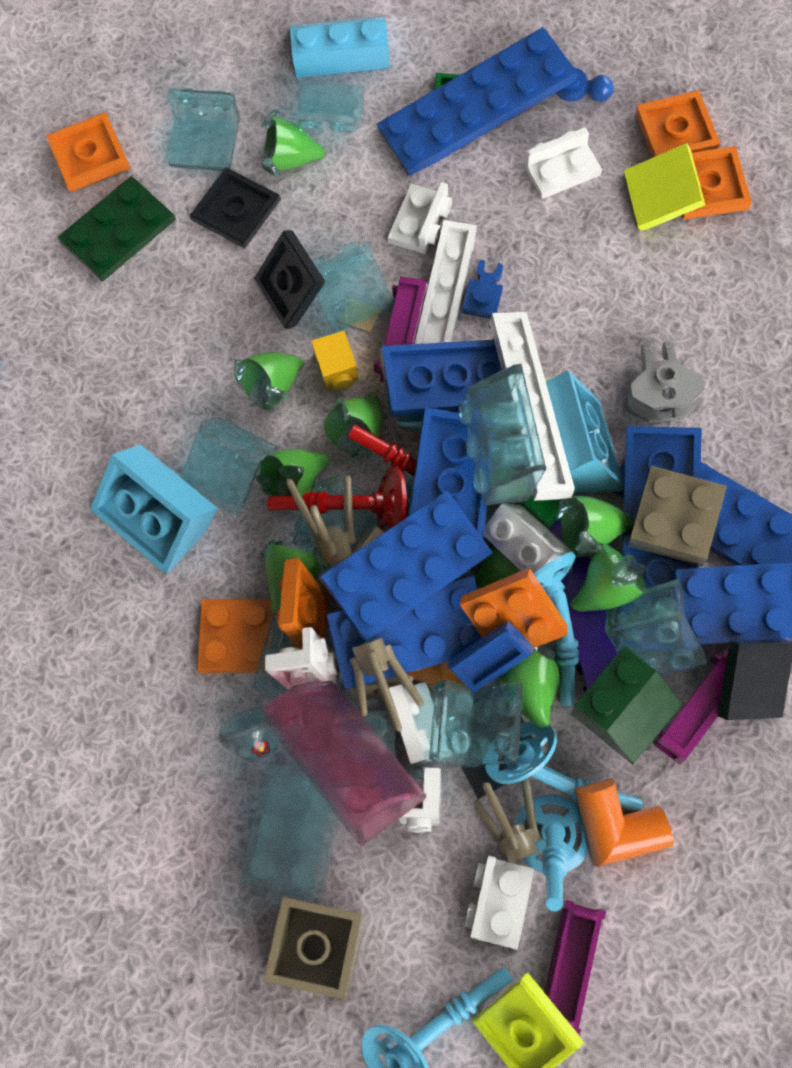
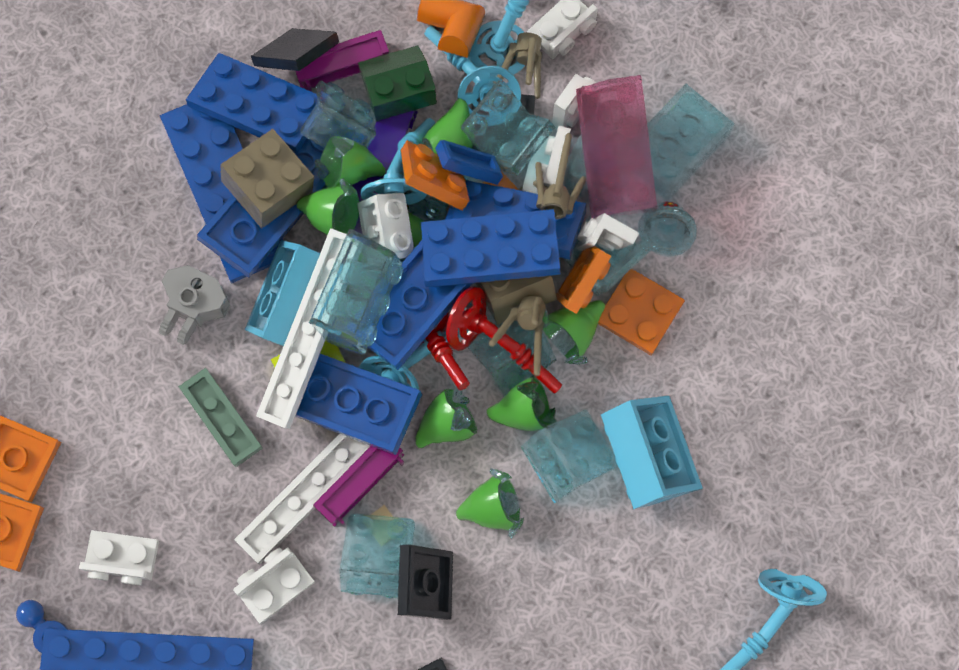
camera: 155 degrees left, 5 degrees up
(314, 948) = (705, 58): dark tan brick -> none
(335, 361) = (431, 486): yellow brick -> none
(483, 295) = (272, 476): blue plate -> none
(564, 312) = (220, 417): none -> sand green plate
(664, 187) = (56, 473): neon yellow tile -> none

